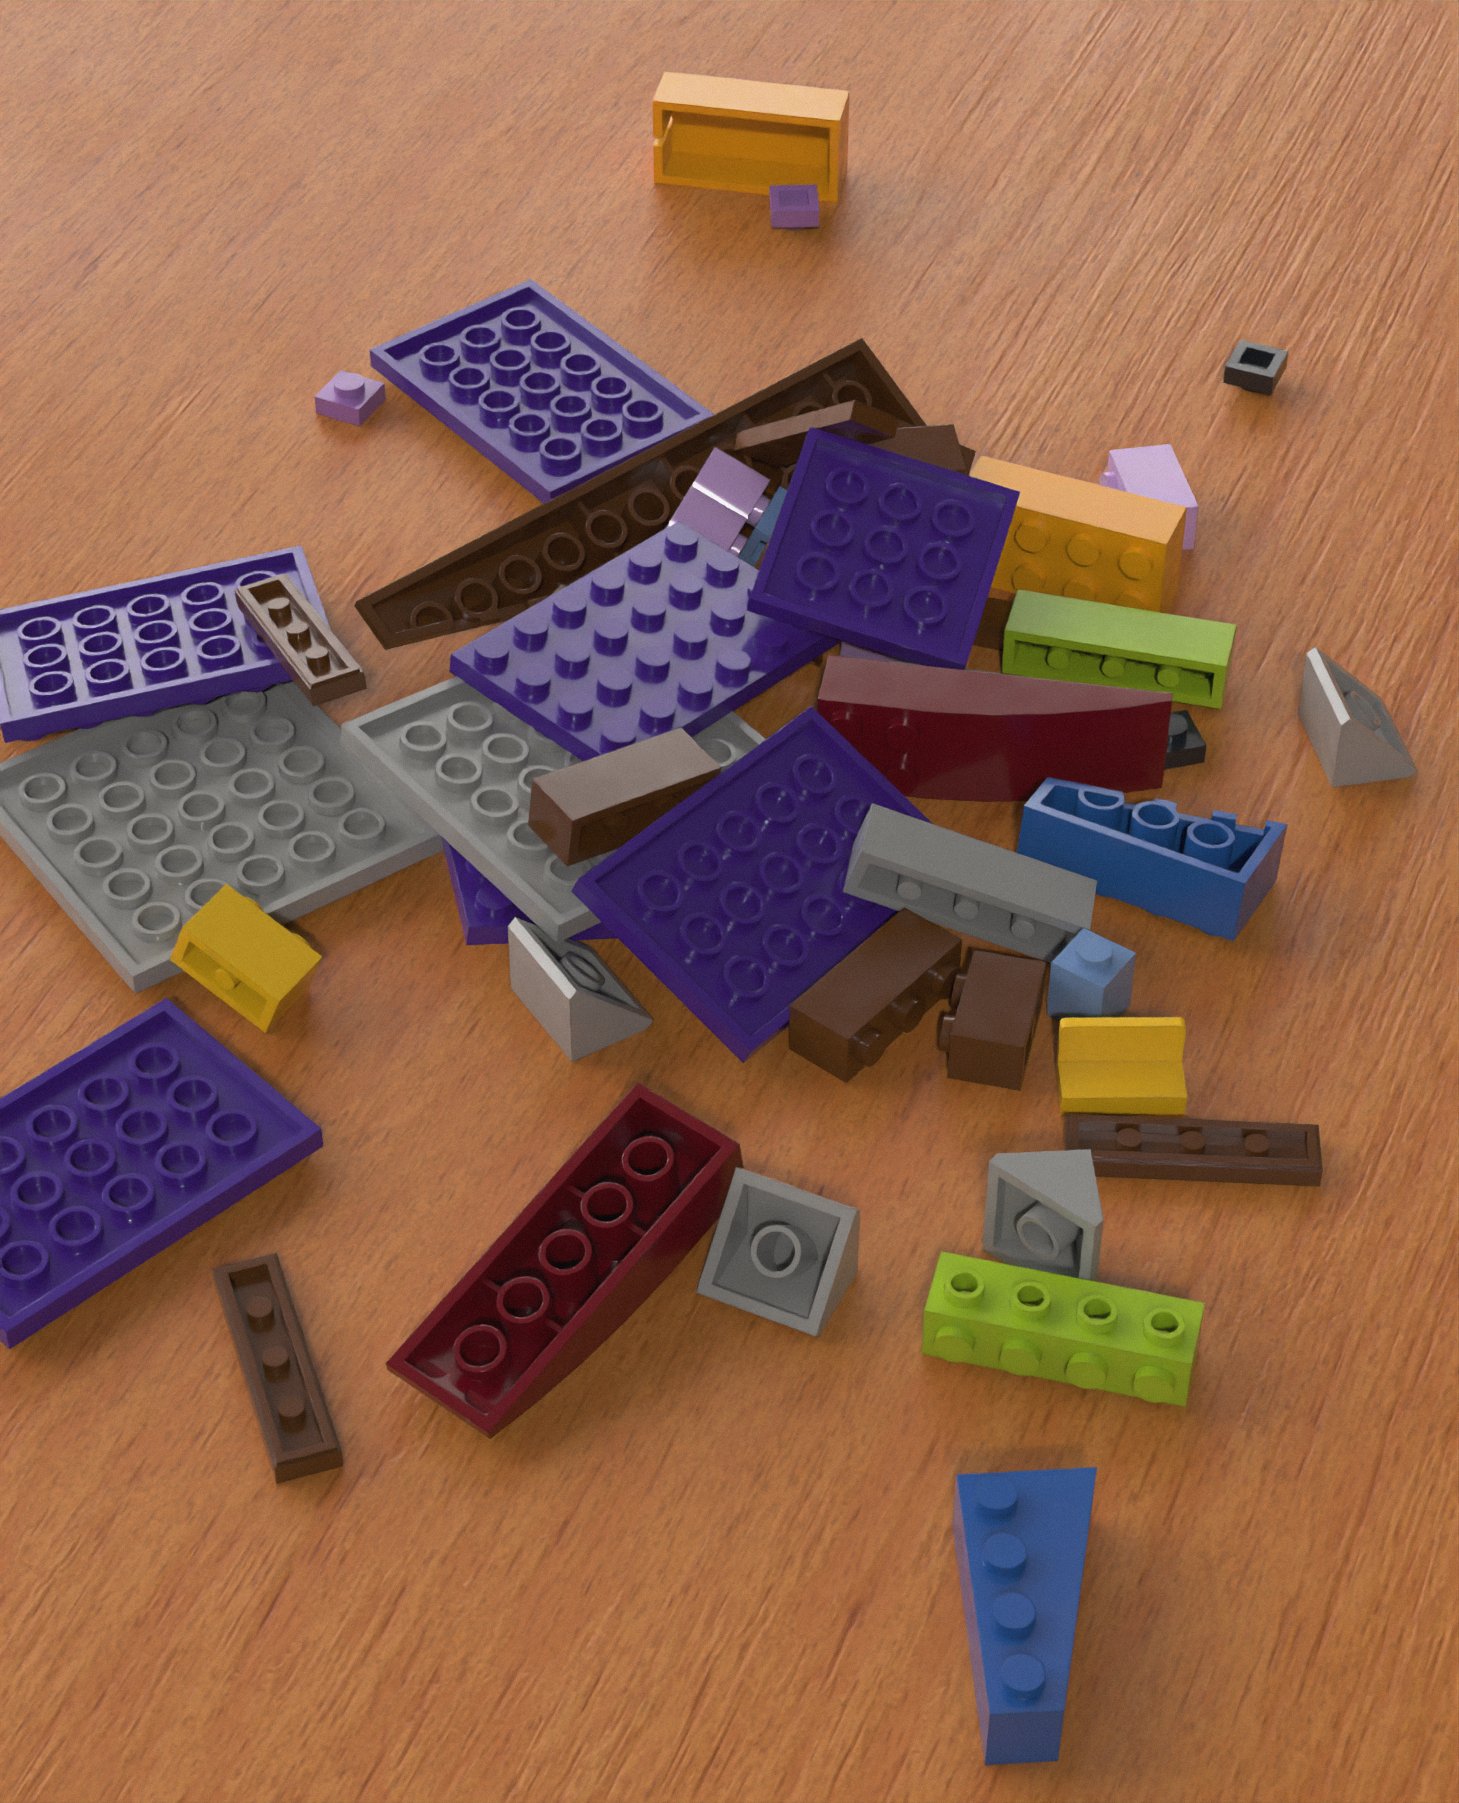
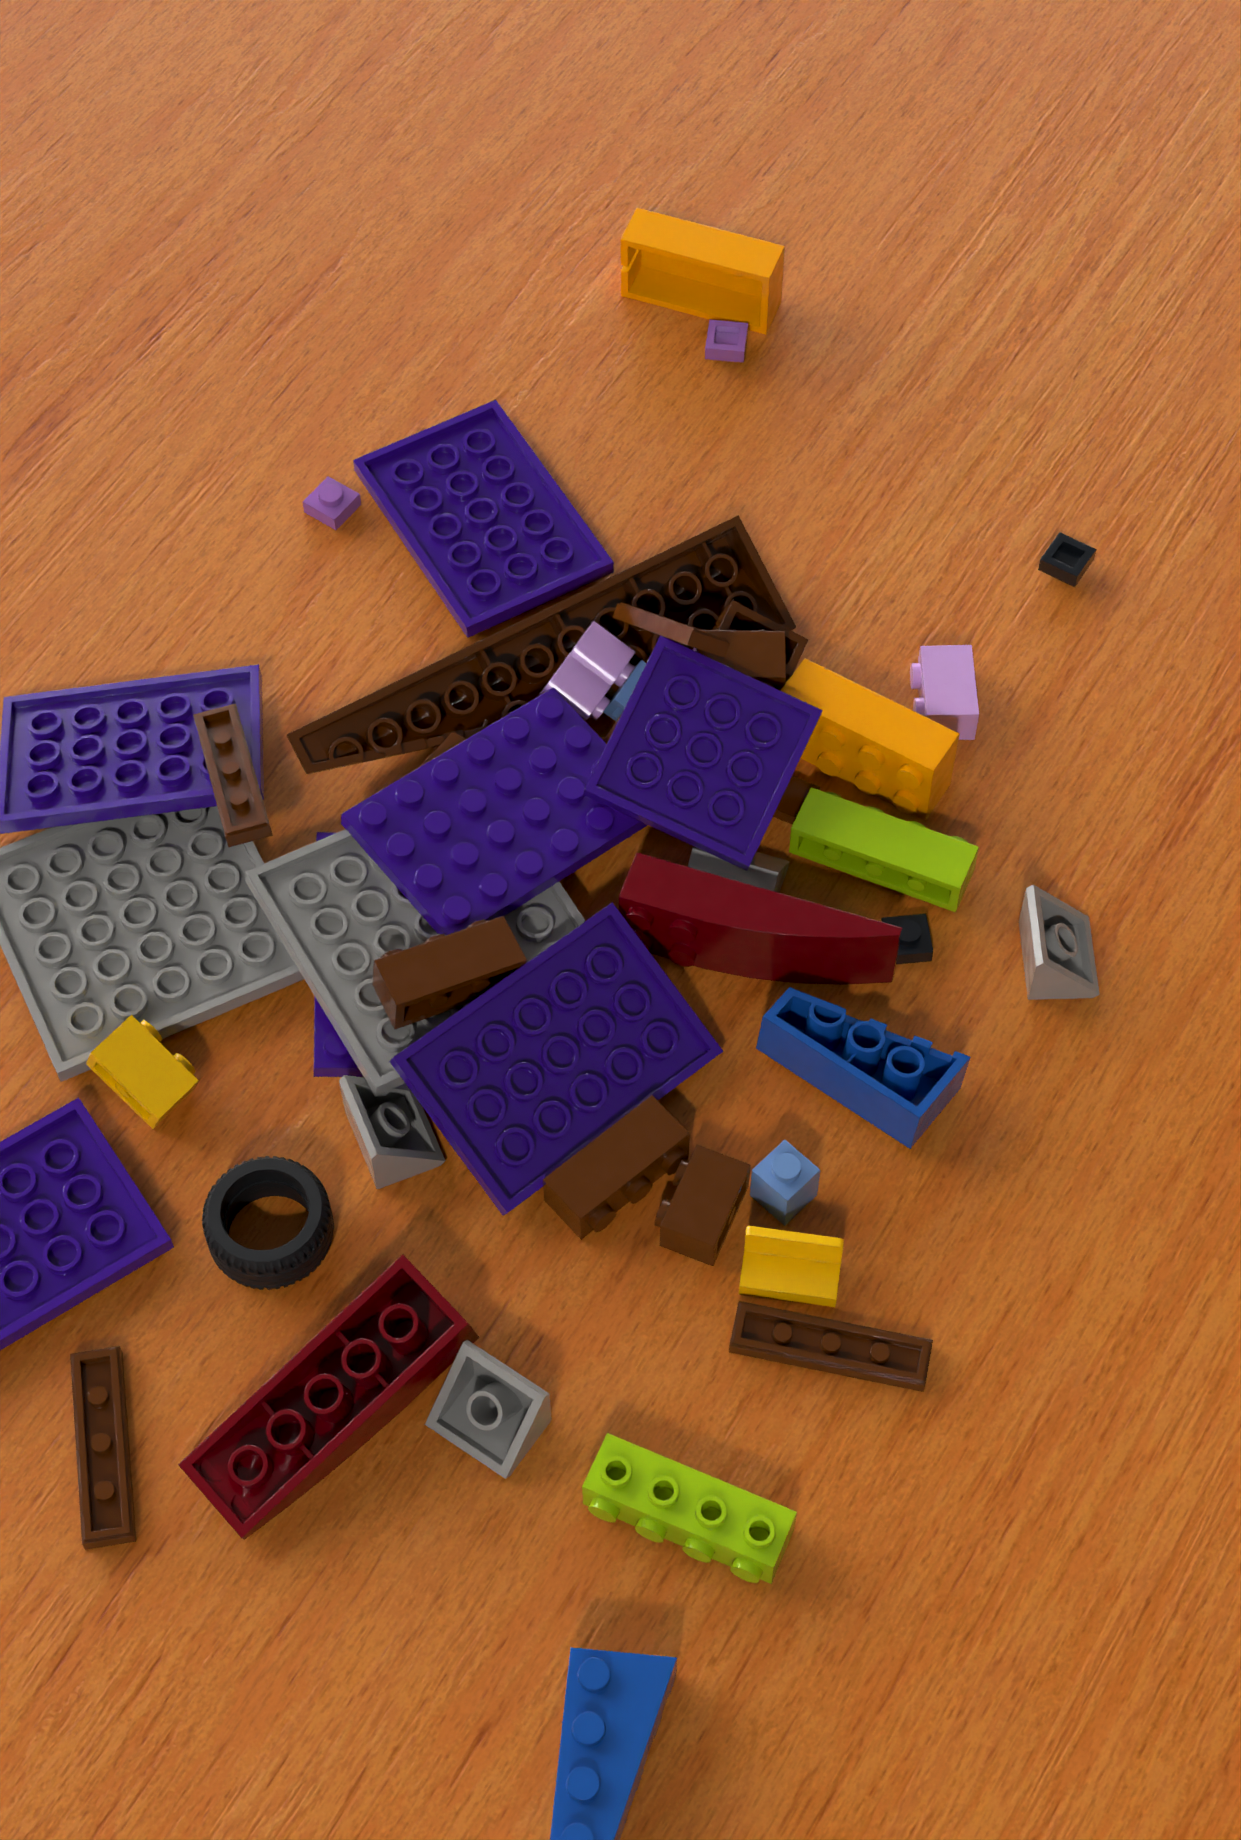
camera: 10 degrees right, 15 degrees up
(444, 1141) = (254, 1181): none -> black tyre
(968, 884) = (707, 1081): light grey brick -> none
(1044, 1212) = (694, 1413): light grey slope -> none

